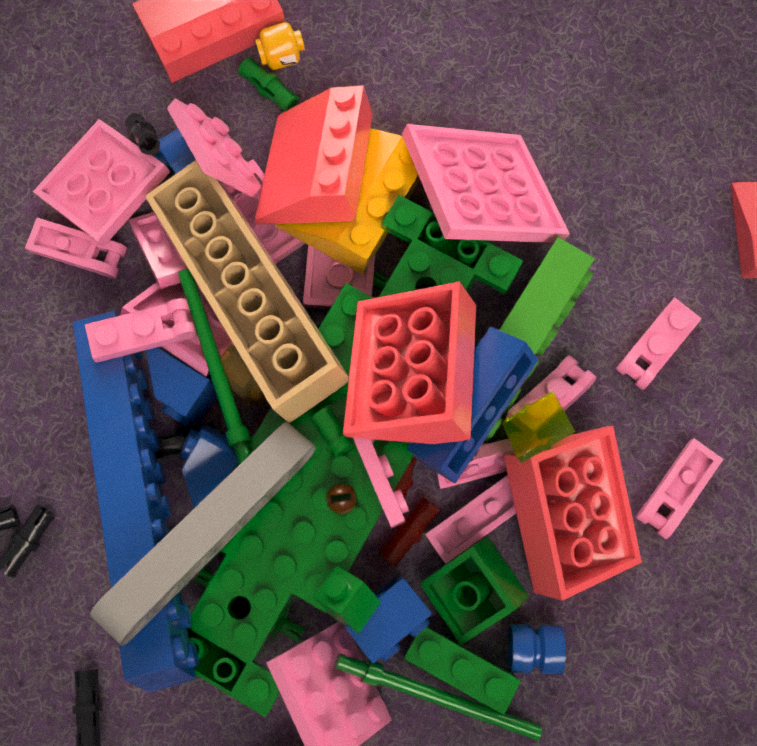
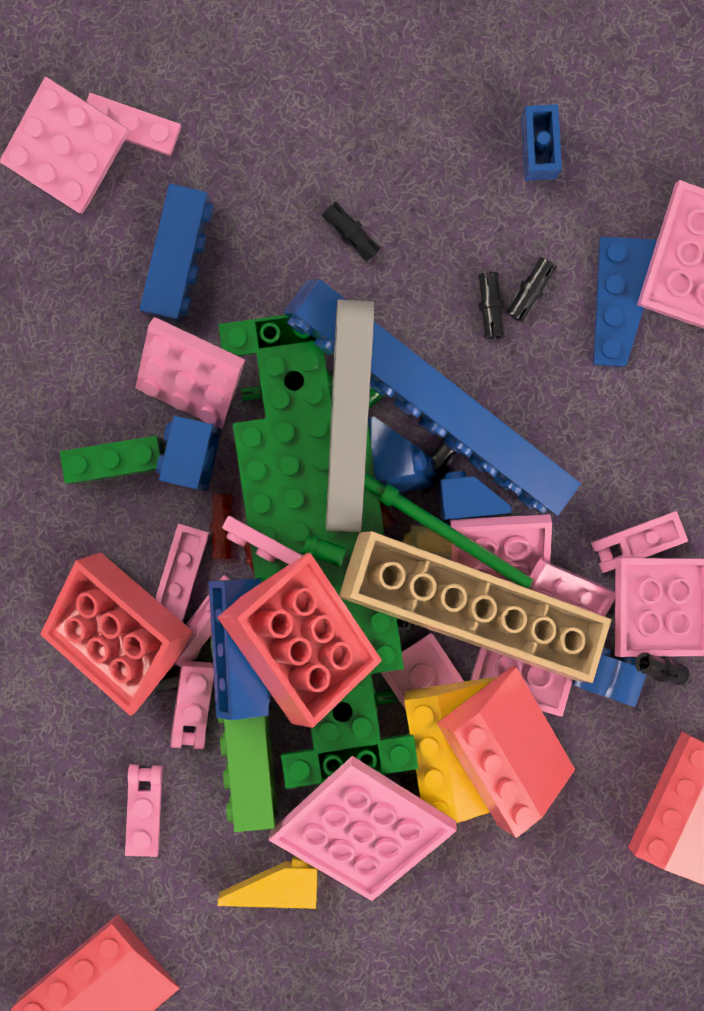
camera: 140 degrees right, 10 degrees up
(139, 331) = (522, 514): bright pink plate -> none
(213, 147) = (593, 699): bright pink plate -> none
(267, 84) = (602, 788): green pin -> none
(279, 46) = (617, 826): yellow head -> none
(342, 507) = (285, 514): reddish brown hinge -> none
(347, 599) = (223, 444): green brick -> none
(374, 674) = (167, 409): green bar -> none
(474, 590) = (143, 521): green slope -> none
(536, 649) = (70, 514): blue wheel -> none
(537, 427) = (182, 669): clear neon green piece -> none
(588, 198) = (282, 886): none -> yellow slope
(680, 487) = (50, 711): bright pink plate -> none

